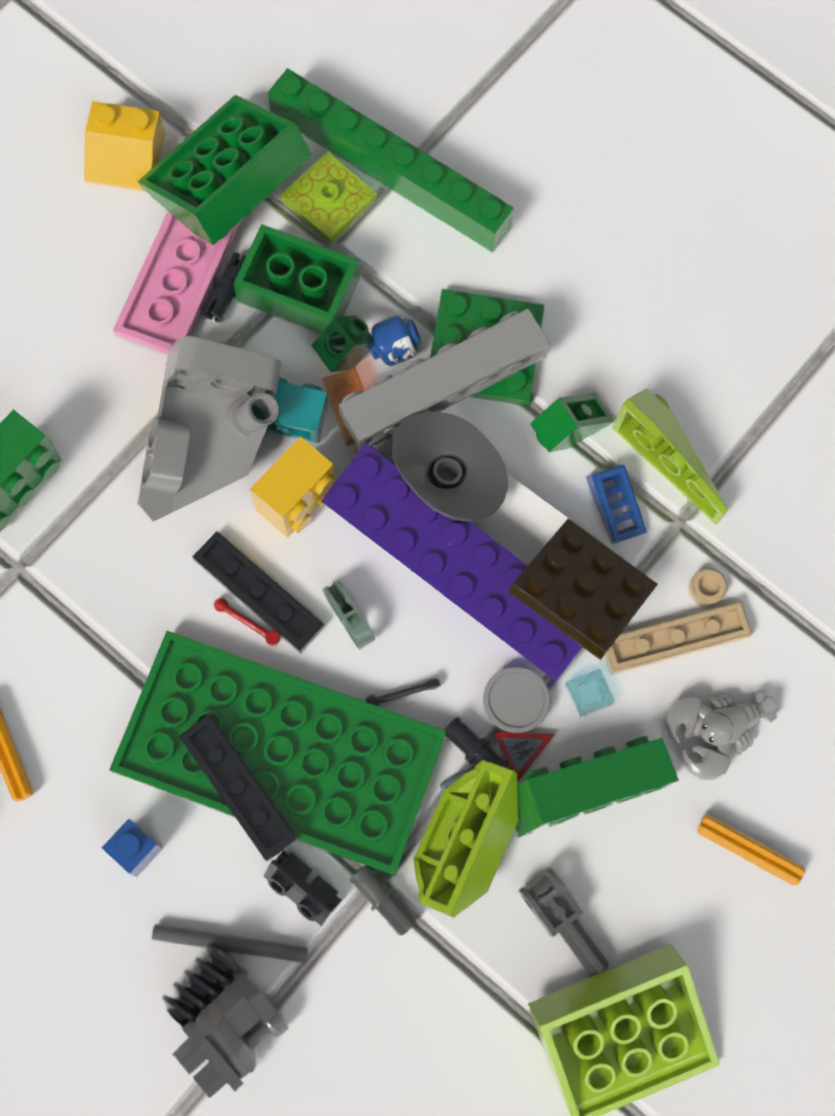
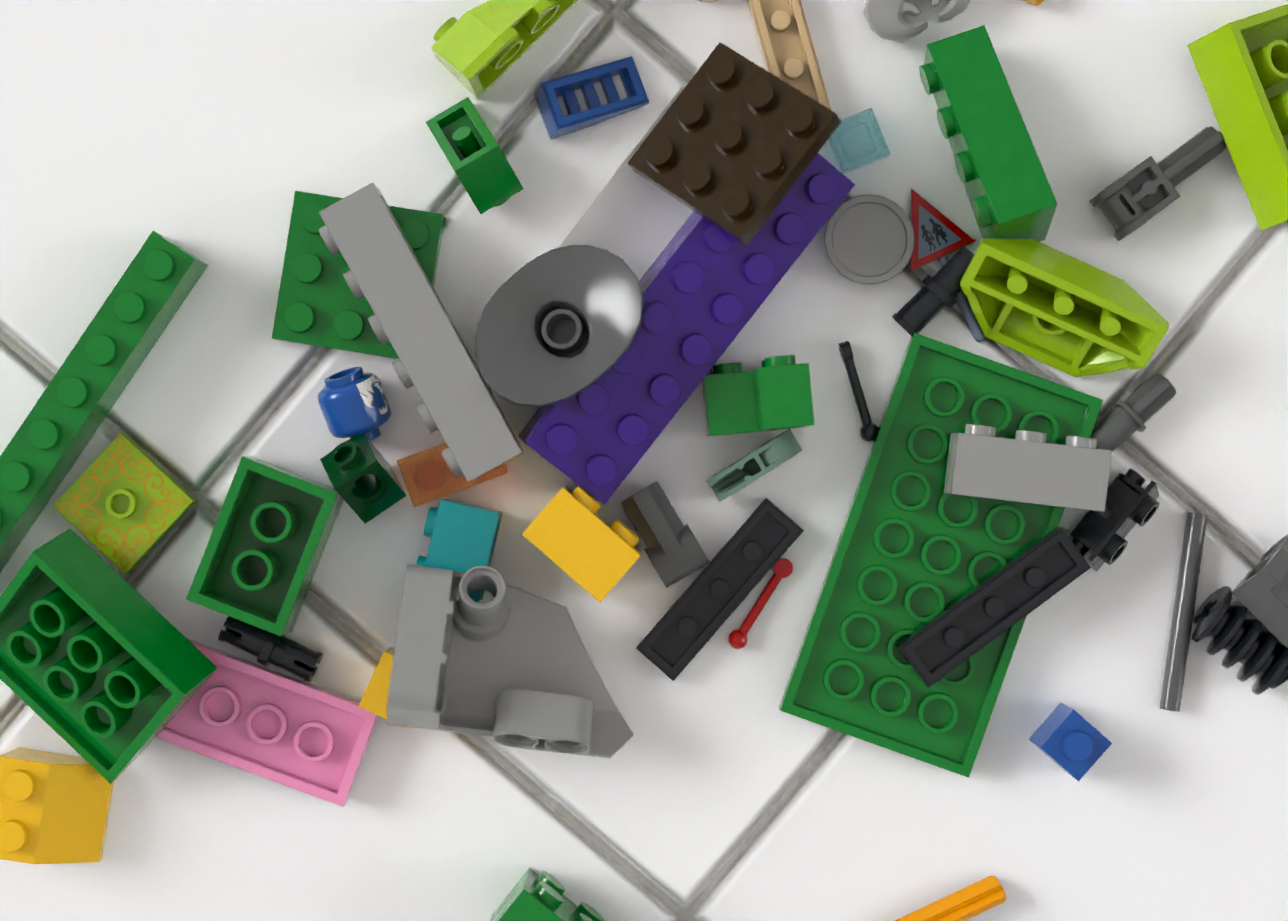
camera: 90 degrees left, 15 degrees up
(290, 555) = (668, 542): none -> dark grey piece
(341, 810) = (1028, 469): none -> light grey brick
(397, 614) = (760, 399): none -> green brick

